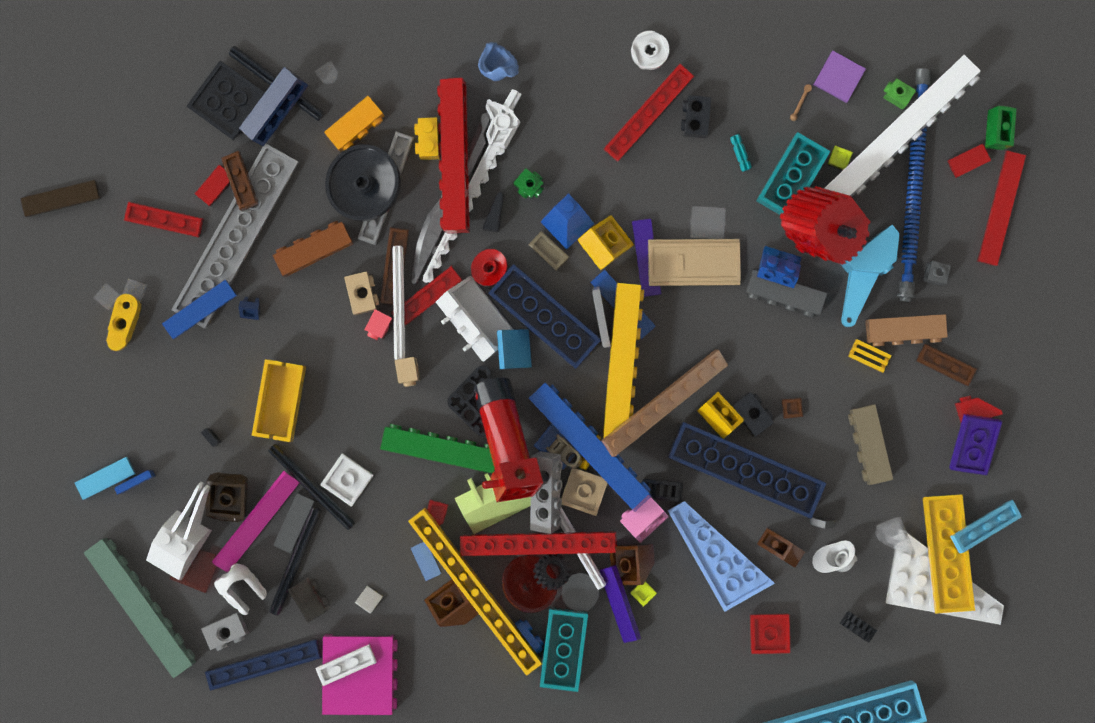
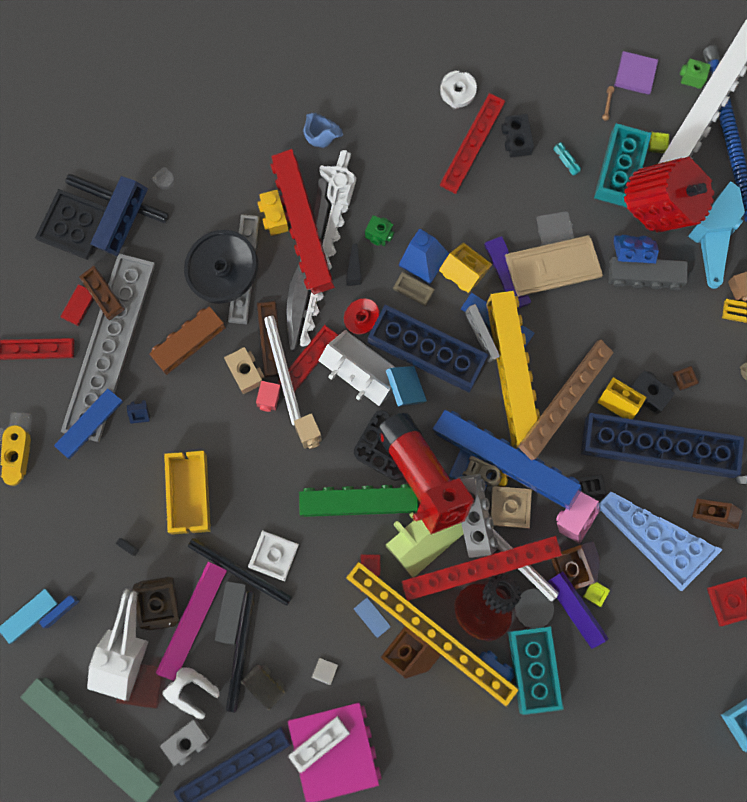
camera: 20 degrees left, 10 degrees down
(354, 124) = (200, 216): light orange brick -> none

